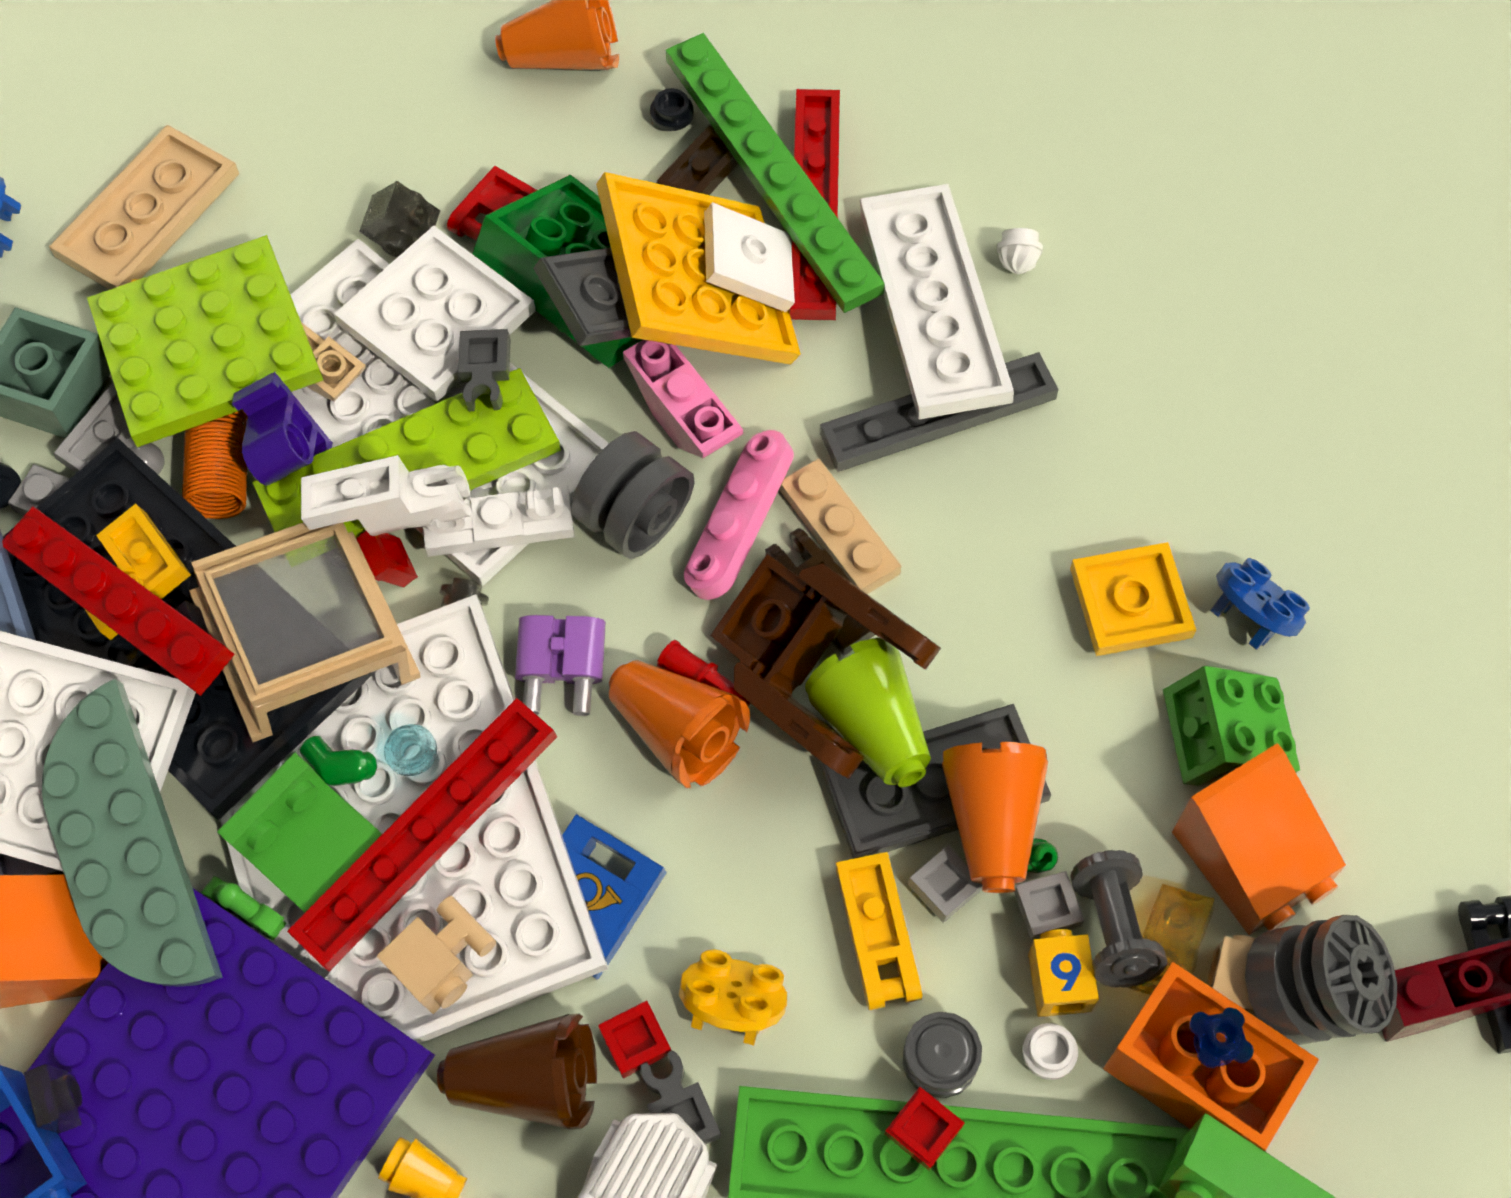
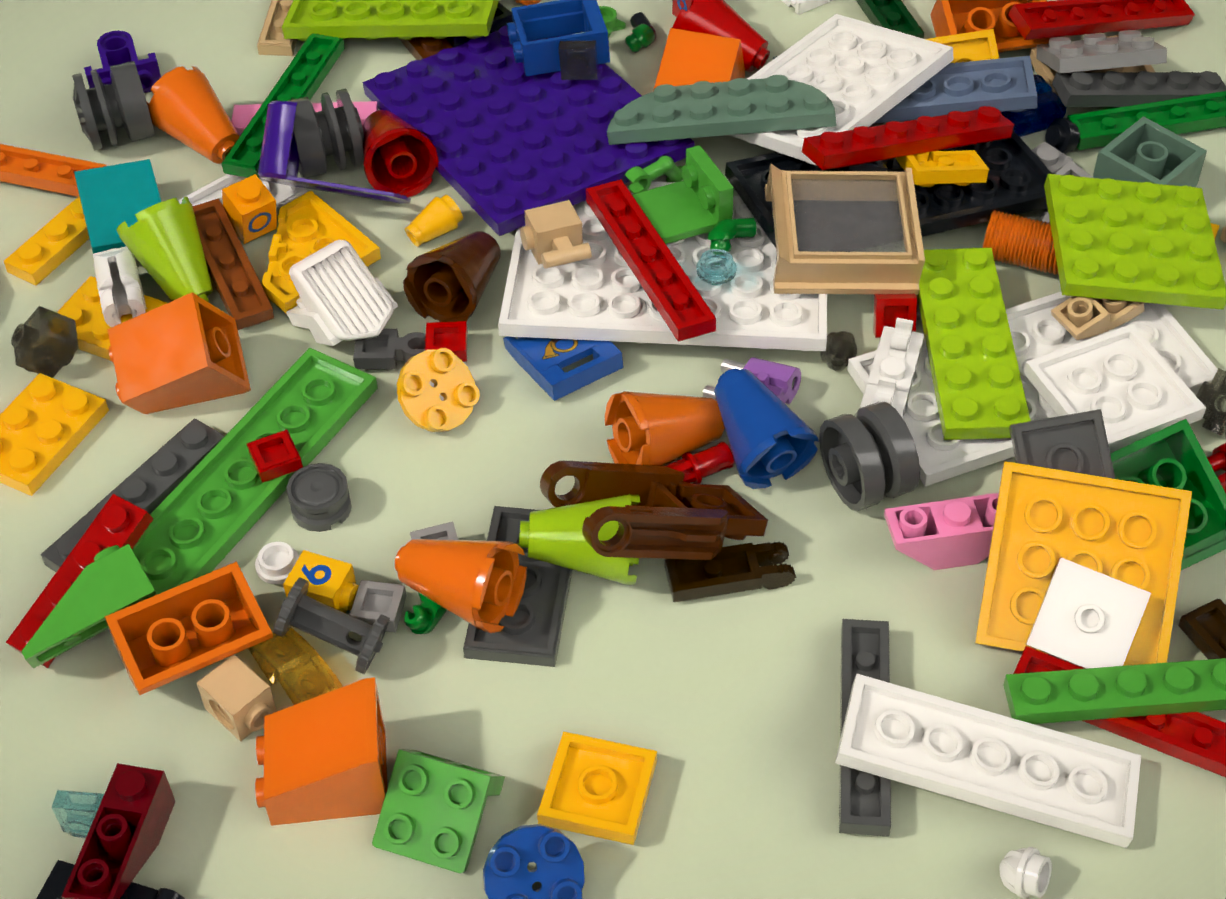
camera: 115 degrees right, 15 degrees down
(278, 430) = (1019, 258): dark purple pin -> none
(384, 496) = (917, 278): white plate -> none
(482, 362) = (1035, 390): dark grey plate -> none
(643, 608) = (762, 430): none -> blue cone
(738, 515) = (831, 541): bright pink plate -> none
(839, 527) = (784, 609): tan plate -> none
(878, 929) = (431, 497): yellow plate -> none
(1216, 1053) = (197, 630): clear blue plate -> none
(1322, 980) = (186, 718): dark grey wheel -> none
(1451, 1052) = (76, 811): none -> clear light blue plate

